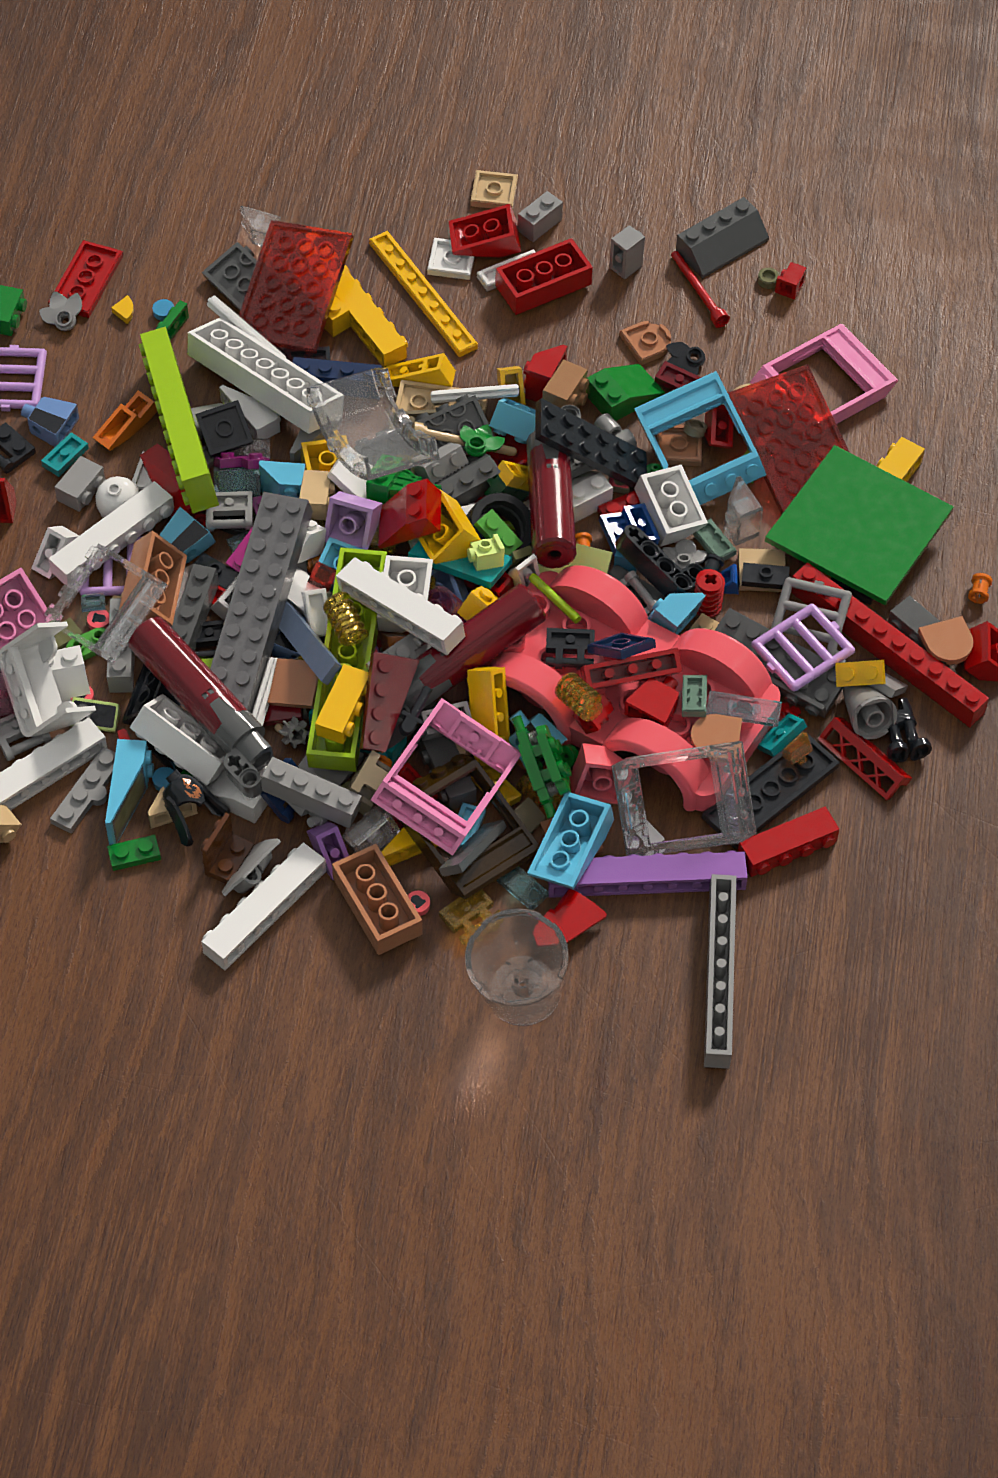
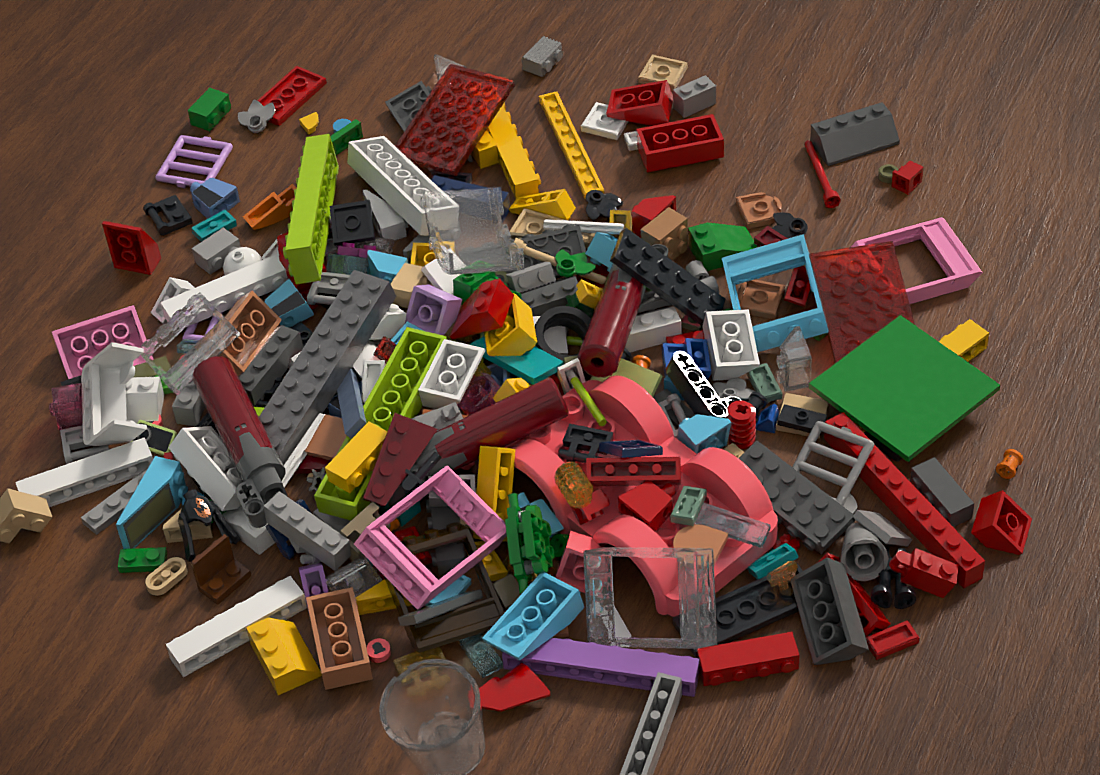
camera: 20 degrees right, 10 degrees down
(166, 867) = (164, 577): none -> tan plate
(229, 315) = (387, 131): white axle -> none
(252, 867) = (237, 590): light grey panel -> none
(321, 927) = (282, 654): none -> yellow slope
(344, 619) = (385, 385): clear yellow piece -> none
(358, 190) = (542, 56): none -> light grey brick
(401, 605) = (438, 380): white brick -> none
(483, 363) = (602, 204): none -> black plate
(486, 553) = (538, 353): yellowish green brick -> none
(493, 524) = (557, 339): bright green plate -> none
(627, 252) = (761, 132): light grey brick -> none
(695, 428) = (776, 284): dark tan tile -> none
(795, 621) = (814, 508): lavender bar -> none
(854, 779) = (829, 612): none -> dark grey slope
(860, 673) = (860, 515): yellow plate -> none
(917, 794) = (892, 640): none -> red tile
(935, 719) = (925, 571): none -> red brick
(948, 640) = (959, 502): nougat tile -> none

